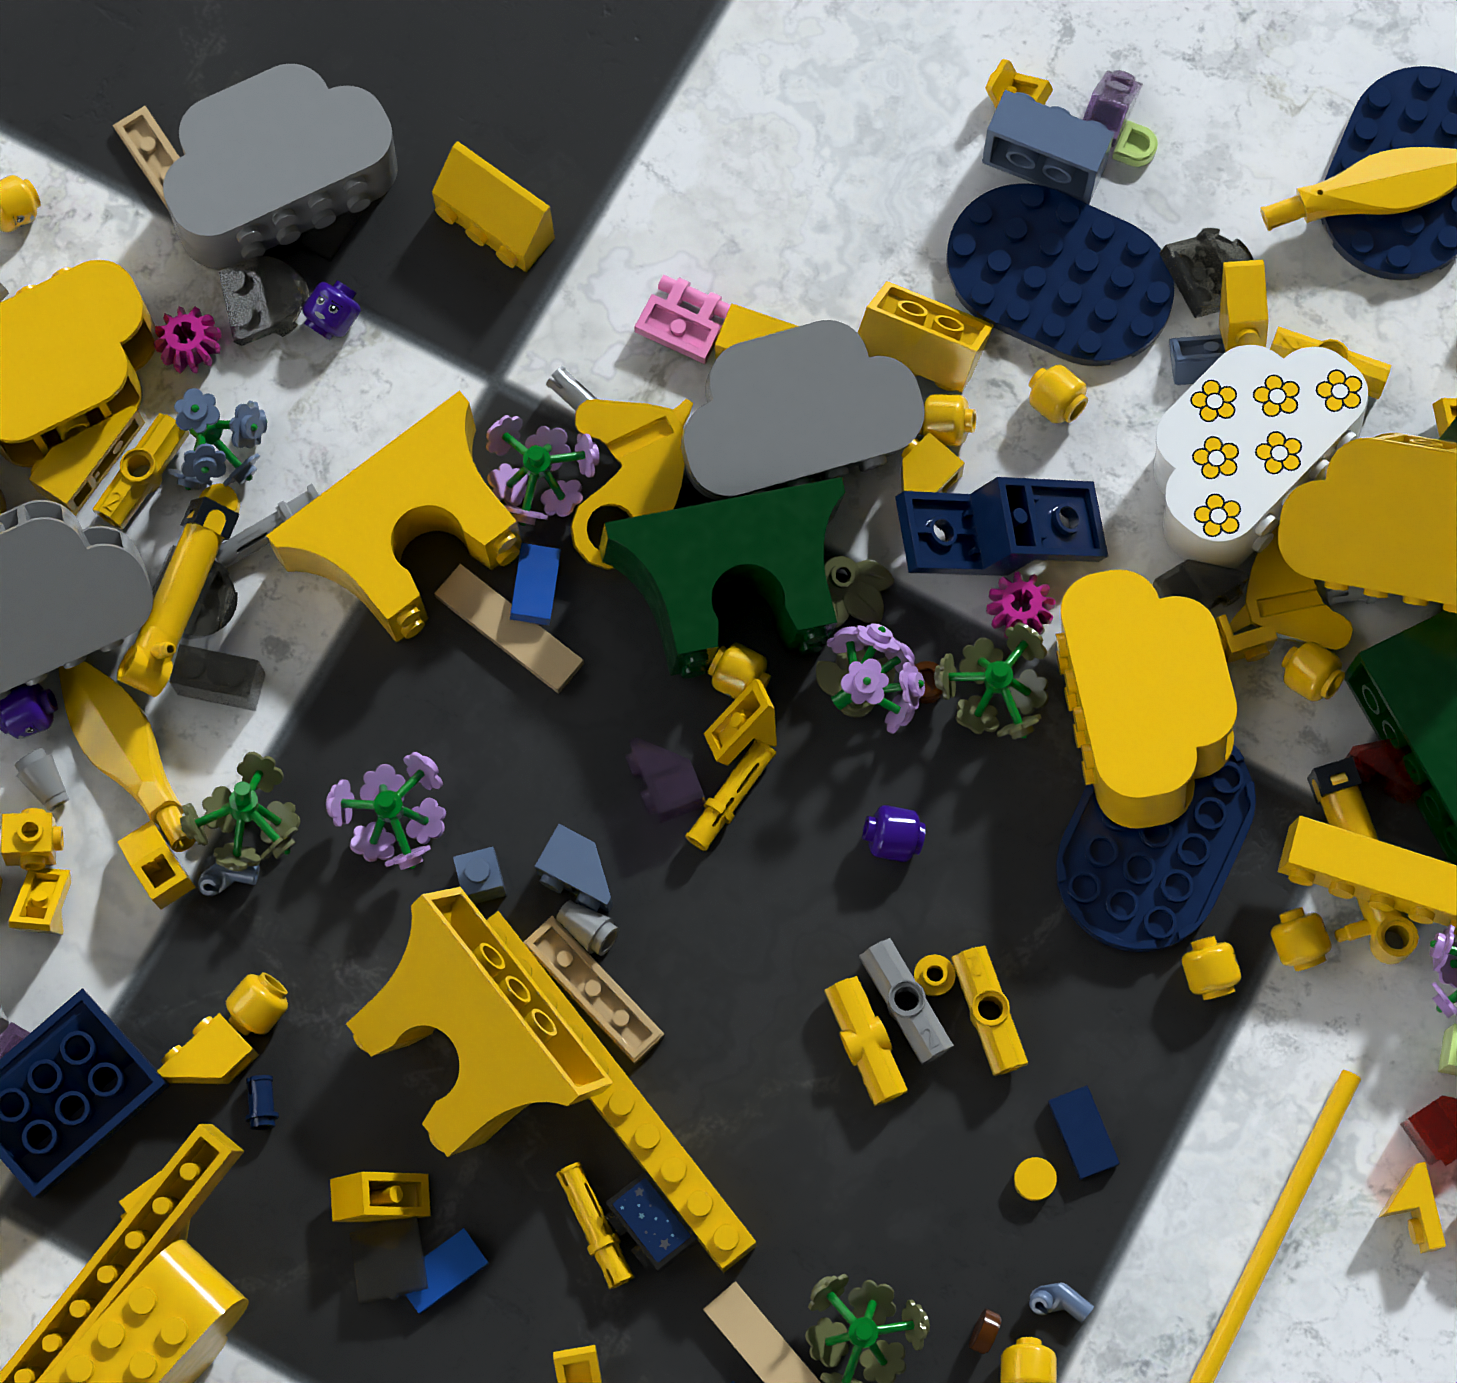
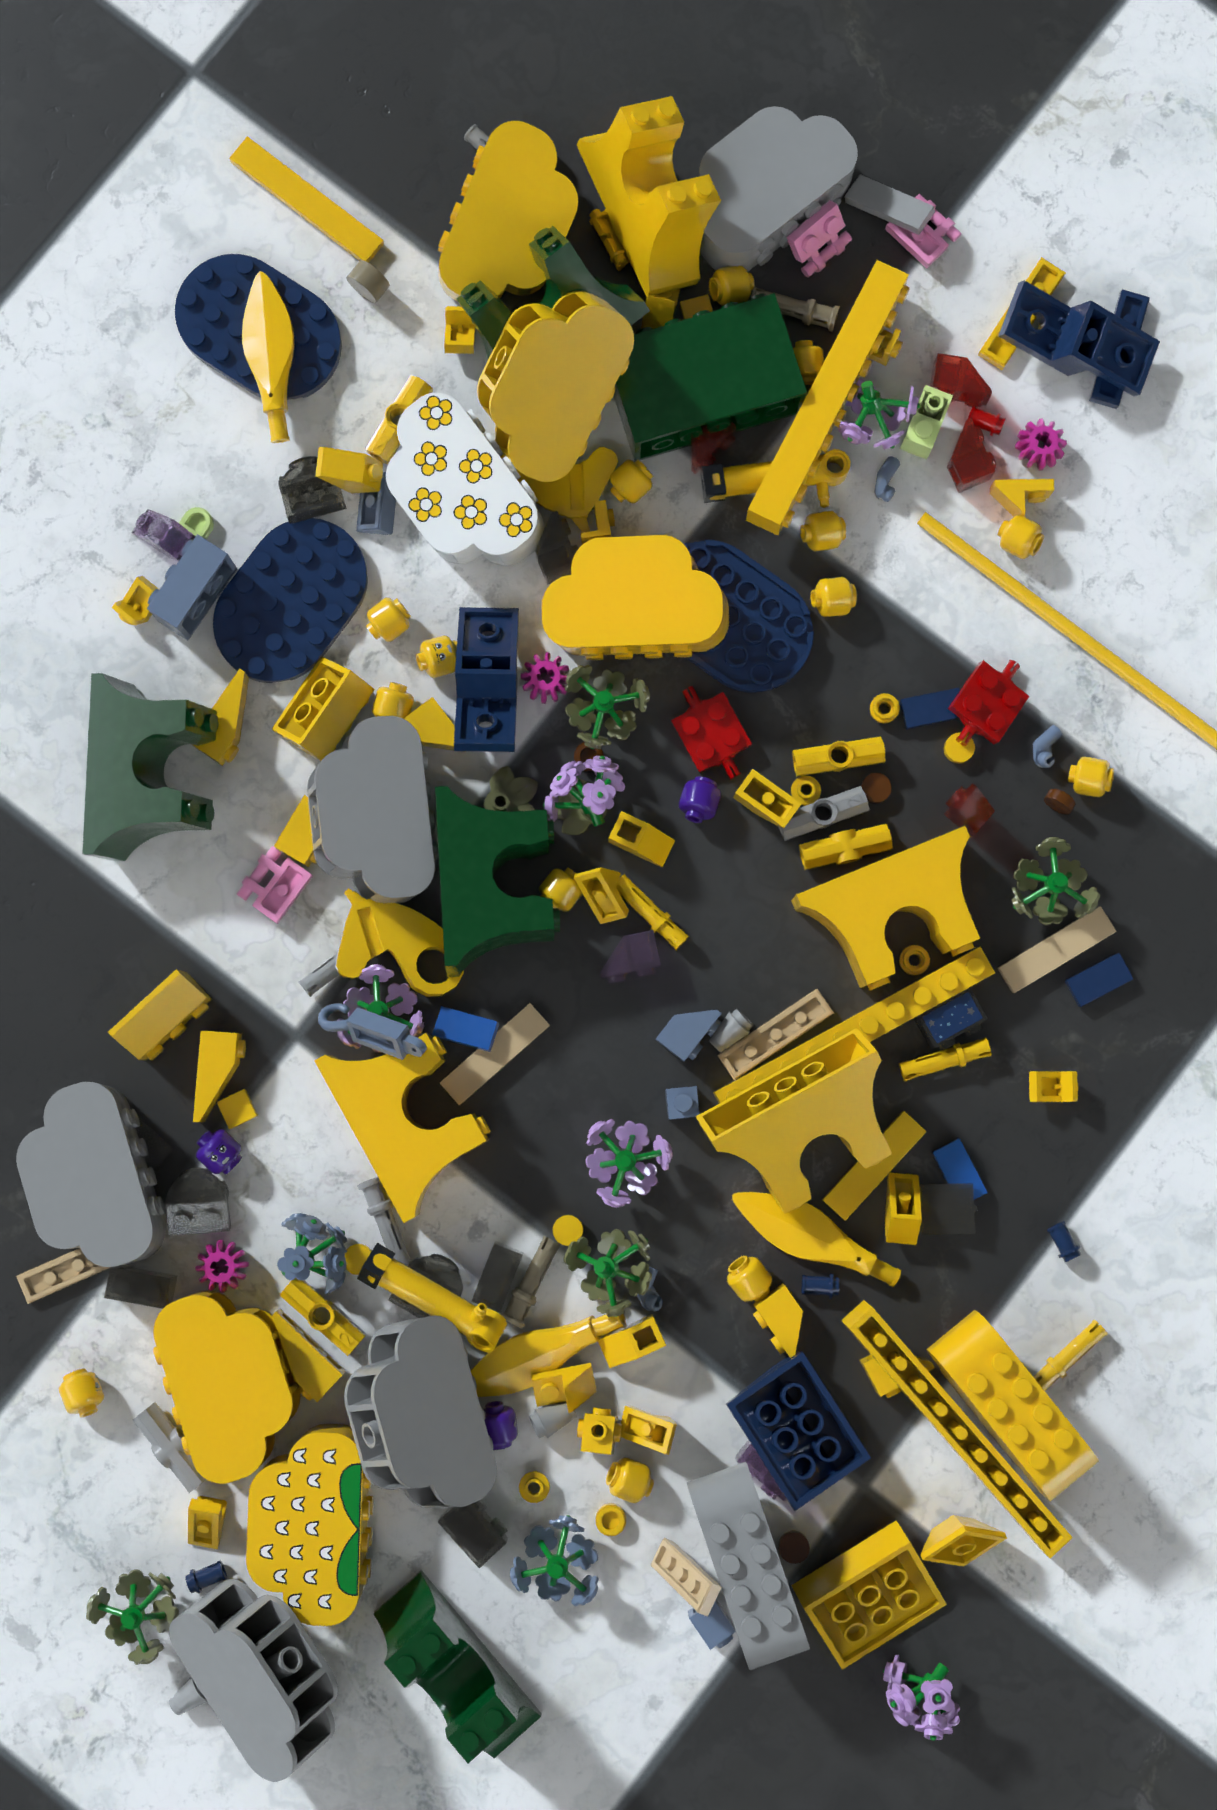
camera: 85 degrees left, 10 degrees up
(86, 788) = (566, 1384): none -> yellow slope
(149, 247) = (140, 1286): none -> clear smoke brick
(199, 717) = (524, 1295): none -> dark tan pin
(292, 758) = (567, 1229): none -> yellow tile
(325, 1083) = (810, 1235): none -> yellow animal
(389, 325) = (237, 1109): none -> yellow tile
(404, 1133) = (860, 1182): none -> yellow tile
(440, 288) = (217, 1063): none -> yellow slope
(508, 453) = (373, 1031): none -> sand blue piece
(730, 1149) = (923, 956): none -> yellow plate
(794, 1072) = (913, 881): none -> yellow piece
(800, 109) = (126, 766): none -> dark green piece
(825, 763) = (641, 839): none -> yellow slope
(880, 220) = (230, 716): none -> yellow slope
(909, 916) = (766, 799): none -> yellow slope
(947, 1199) = (969, 809): none -> clear red slope
(956, 1071) = (876, 788): none -> reddish brown tile
(990, 836) = (711, 732): none -> red plate
(1021, 460) = (437, 656): none -> yellow head
(1074, 1053) = (891, 702): none -> yellow plate
(1106, 1207) = (988, 702): none -> red plate
(1353, 1216) = (1020, 536): none -> yellow head
(1394, 1011) = (884, 475): none -> sand blue arm

